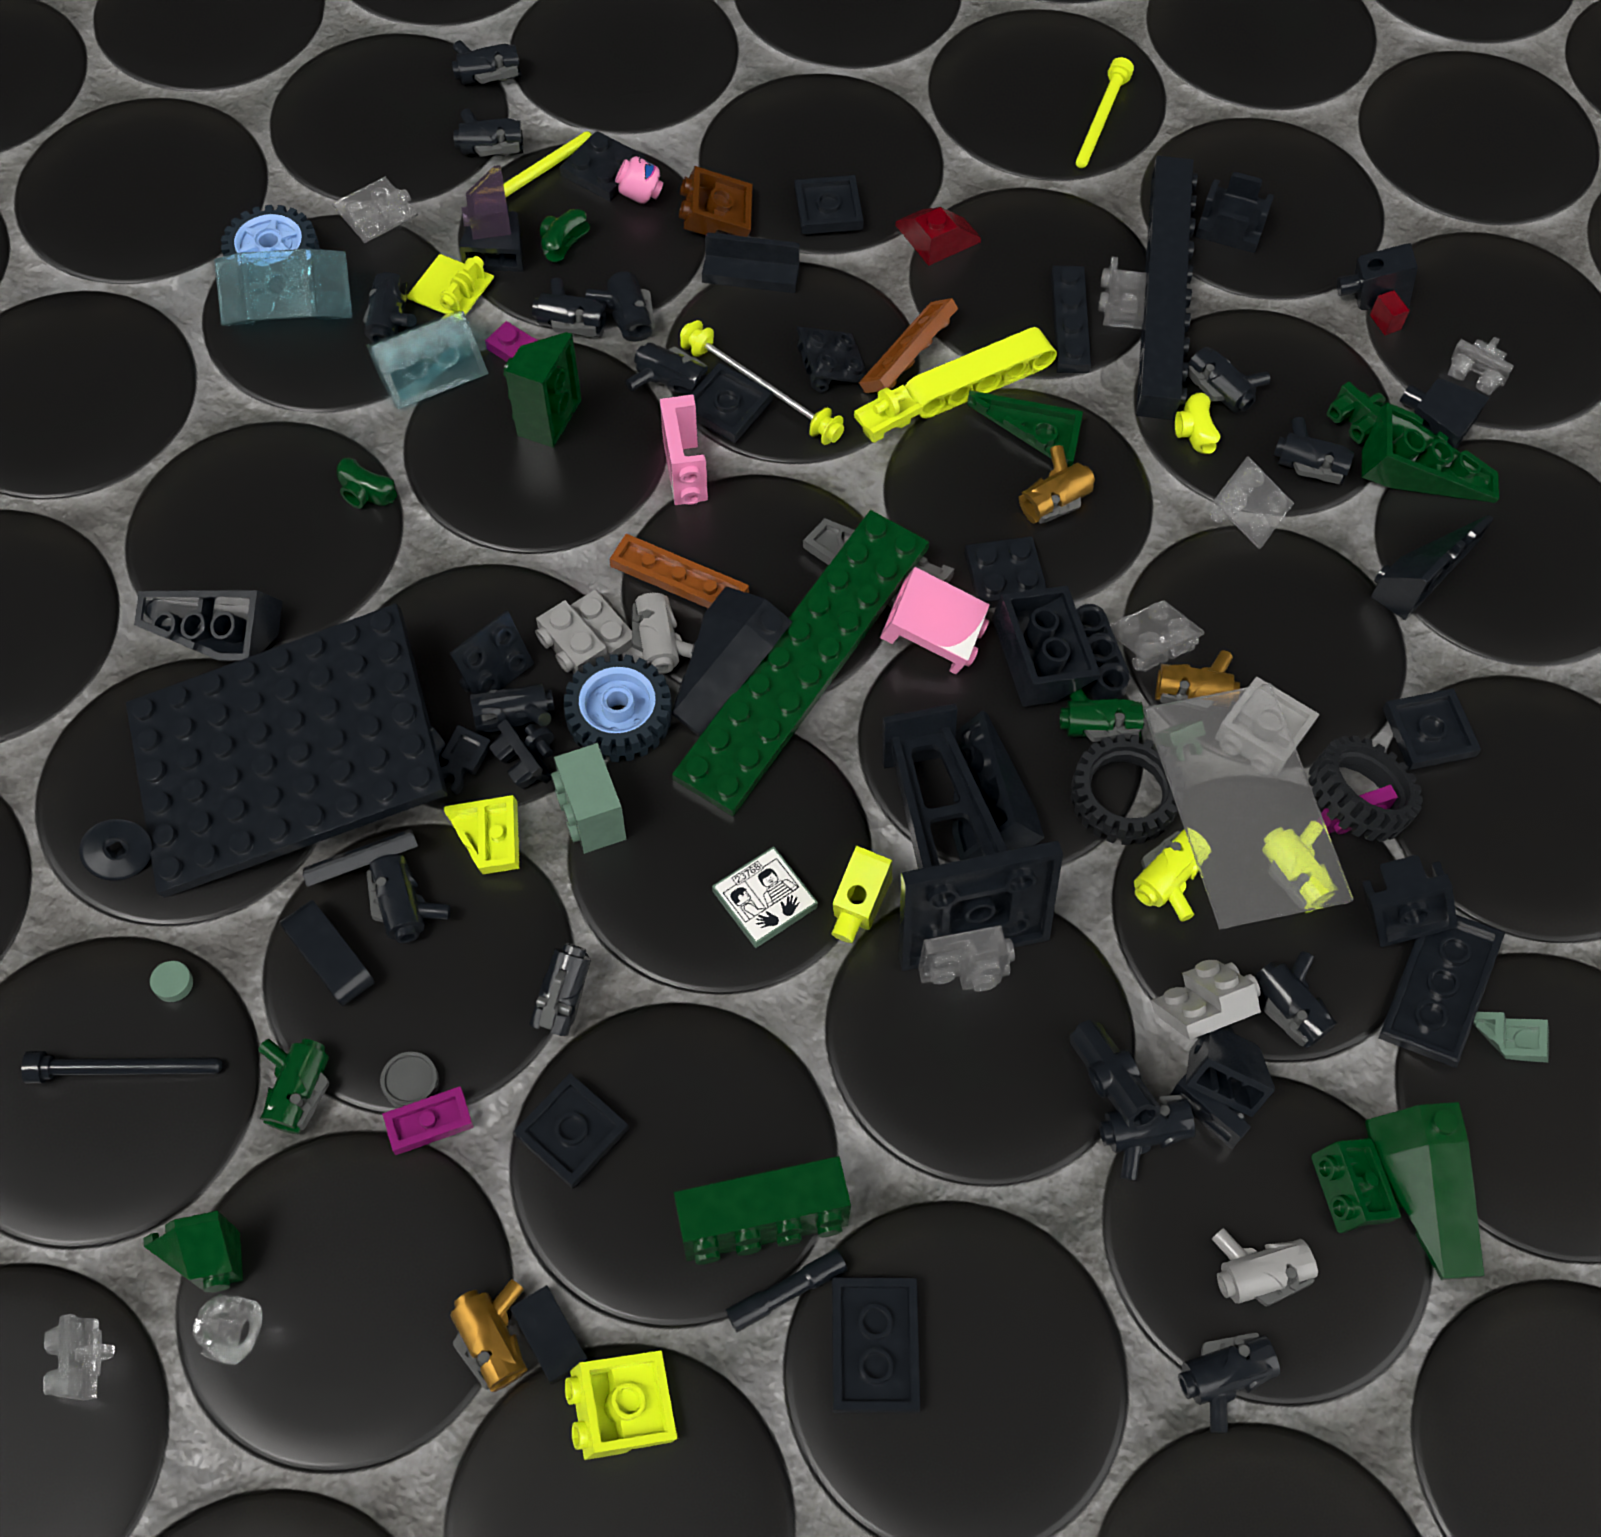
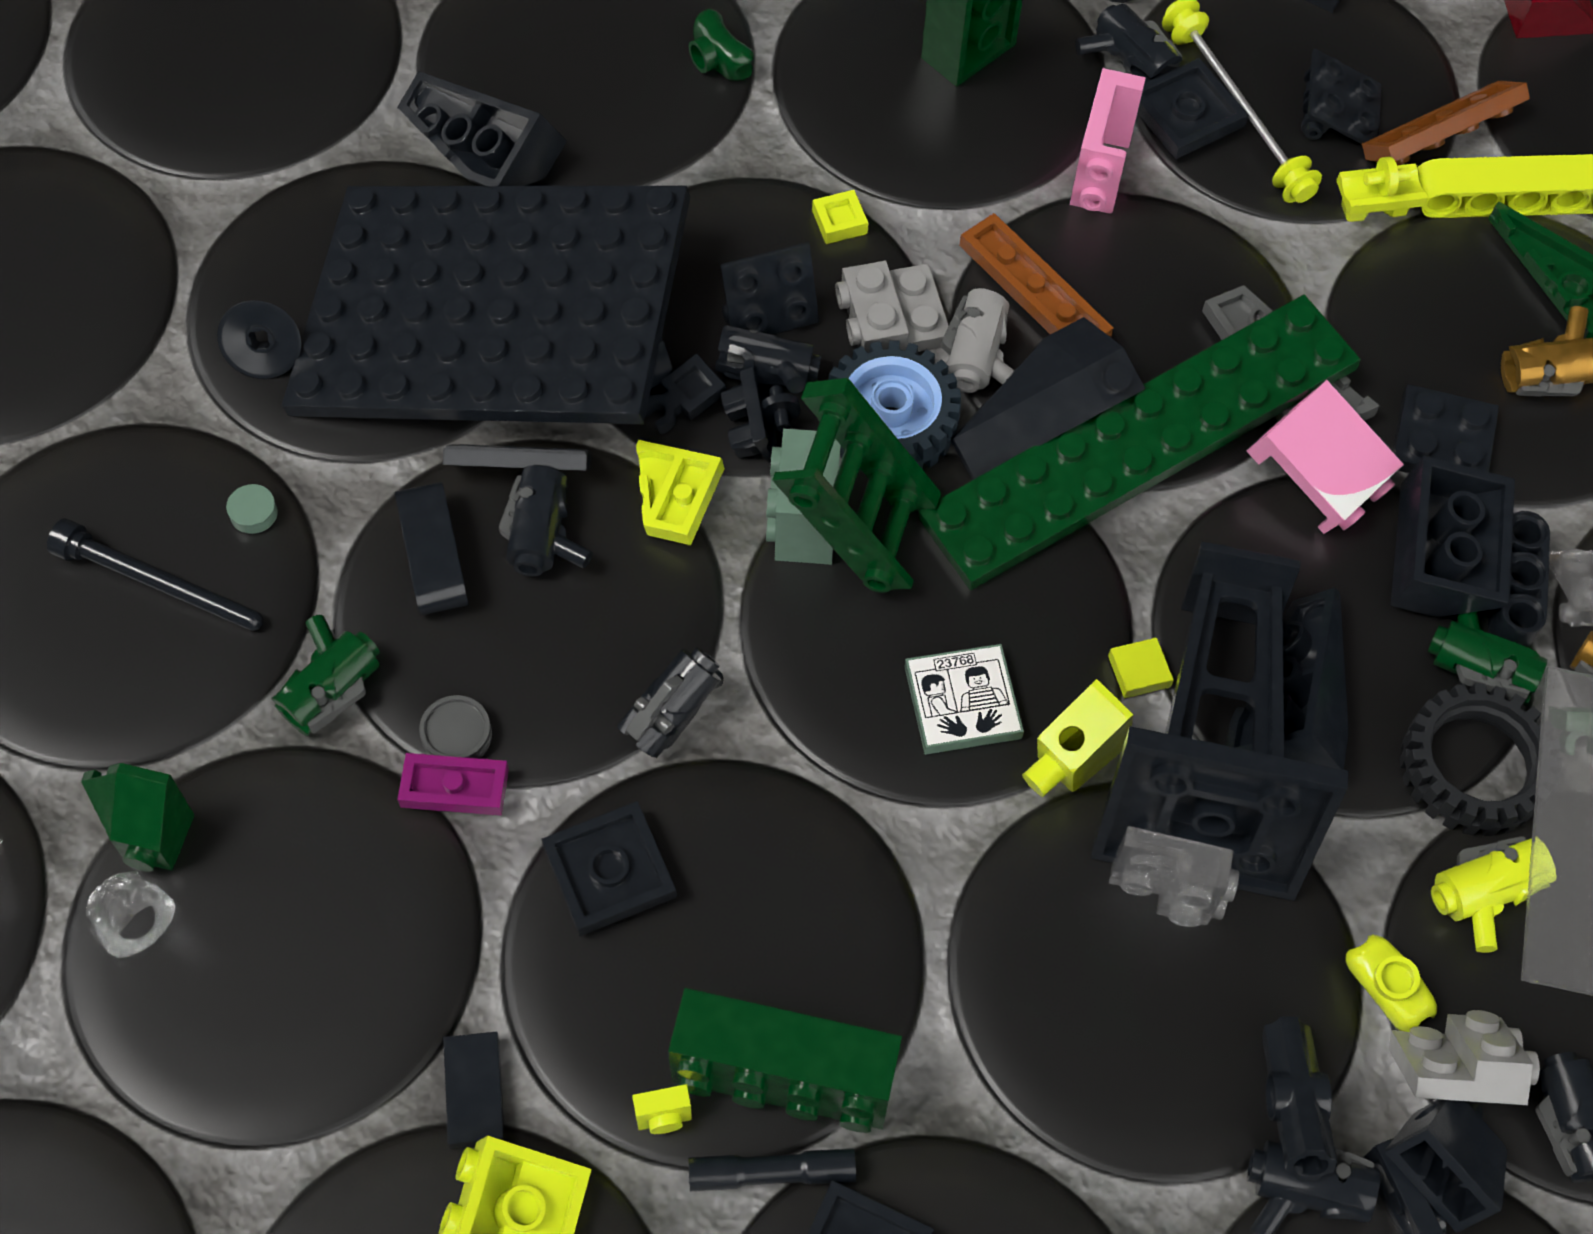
camera: 25 degrees right, 0 degrees up
(485, 1339) = (398, 1059): pearl gold piece -> none
(513, 579) = (840, 216): none -> neon yellow tile
(644, 757) = (890, 473): none -> dark green fence
(692, 1284) = (662, 1109): none -> neon yellow plate
(876, 822) = (1140, 668): none -> neon yellow tile
(1137, 967) = (1392, 982): none -> neon yellow piece

